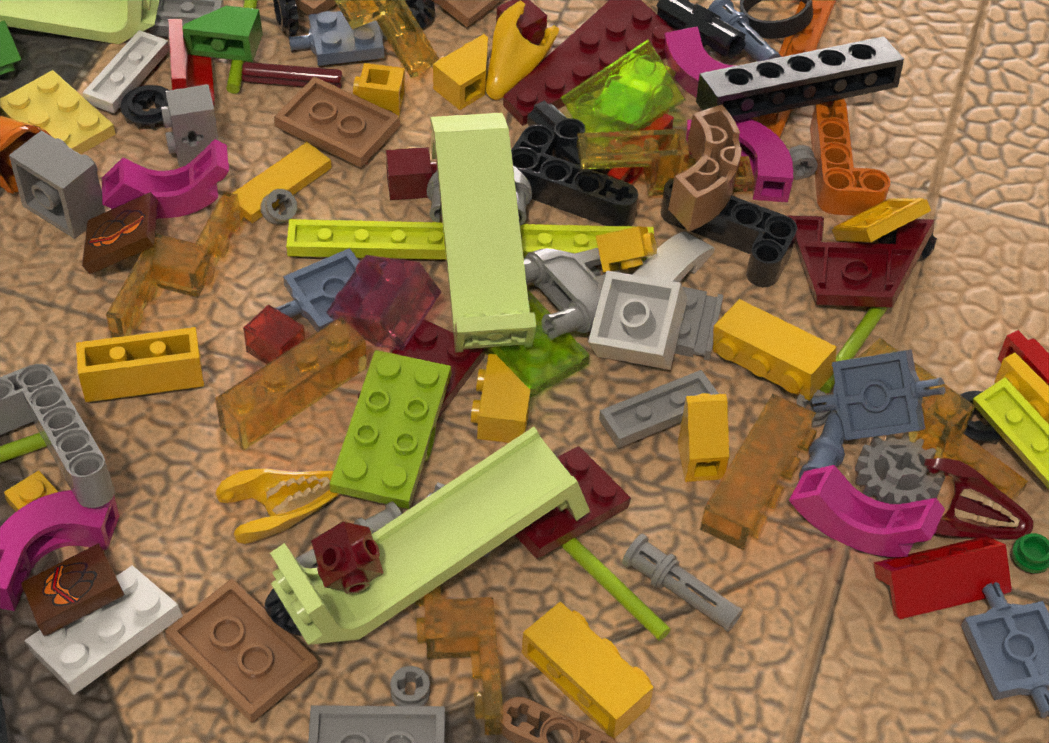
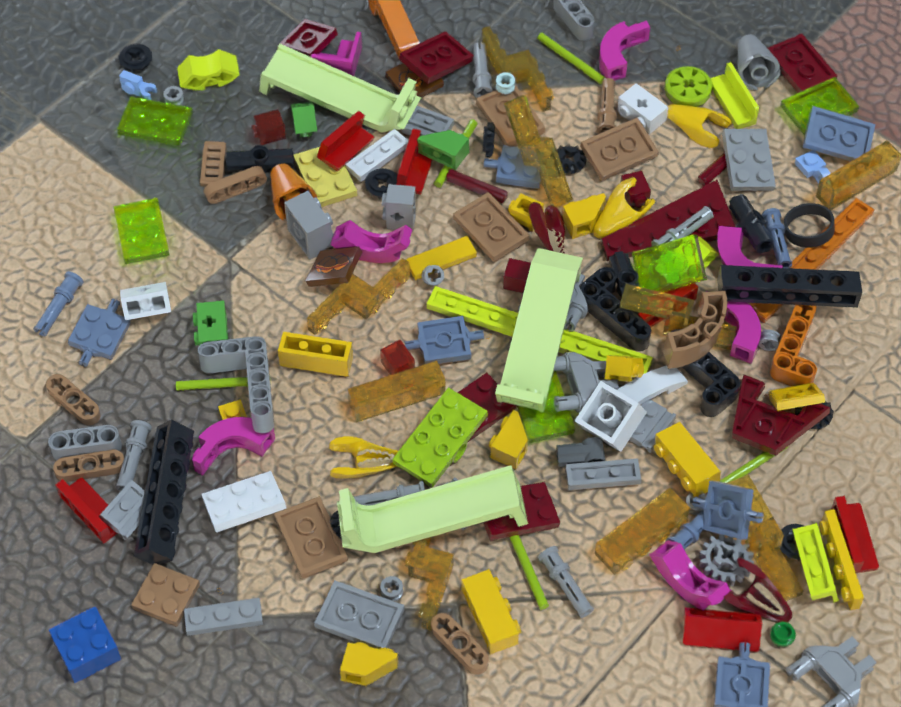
camera: 25 degrees right, 5 degrees up
(69, 63) = (345, 142): none -> red panel
(72, 589) = (234, 474): reddish brown tile -> none
(347, 557) = (381, 506): dark red brick -> none
(386, 300) = (467, 357): clear pink slope -> none
(418, 92) = (548, 226): none -> dark red animal
(622, 382) = (588, 451): none -> dark grey piece
(633, 31) = (702, 216): none -> light grey pin
(704, 437) = (616, 500): yellow slope -> none

